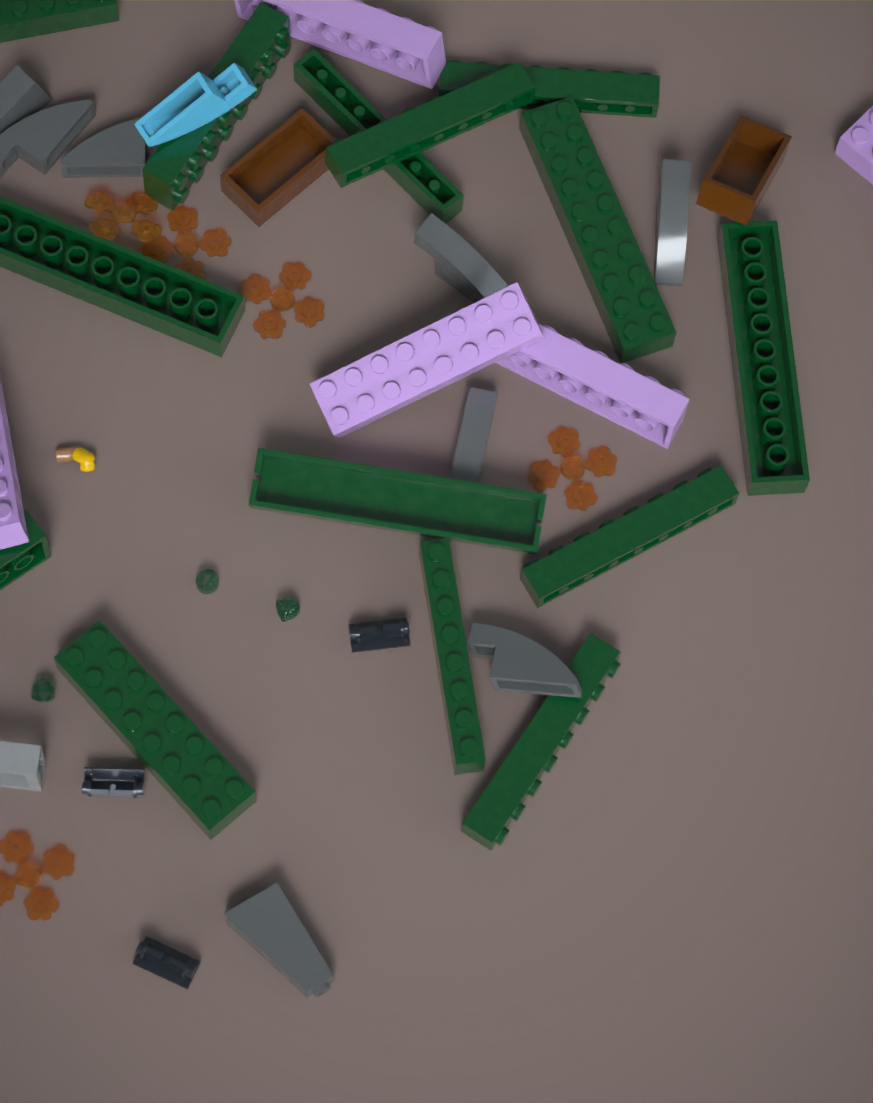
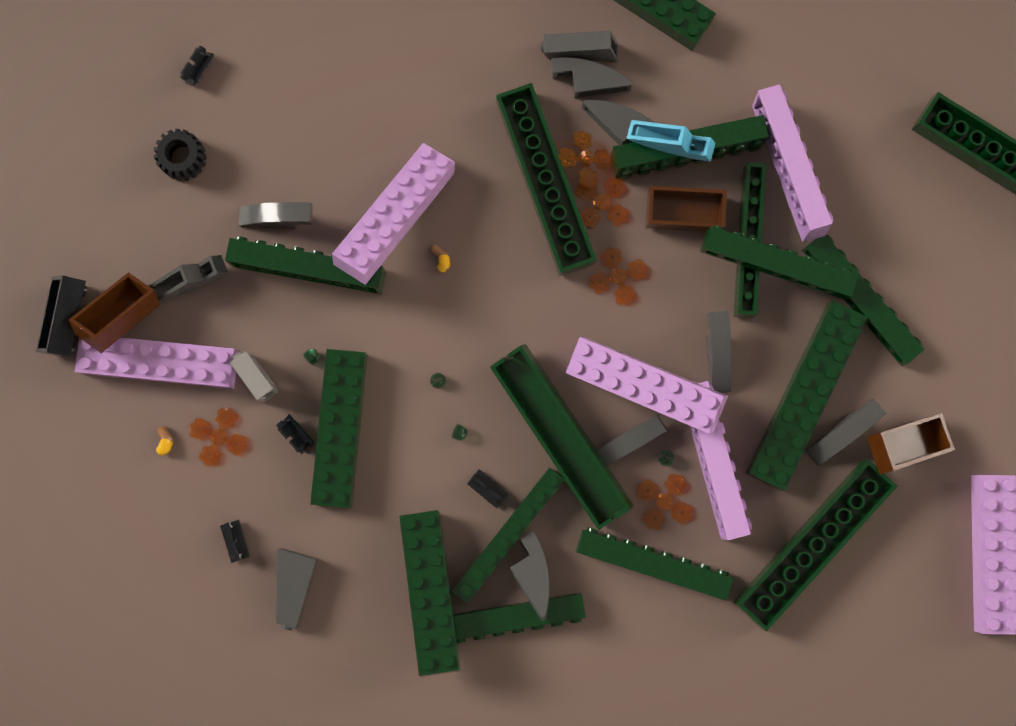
camera: 50 degrees right, 15 degrees up
(436, 788) = (429, 593): none -> dark green brick
(525, 416) = (663, 461): none -> clear green hinge

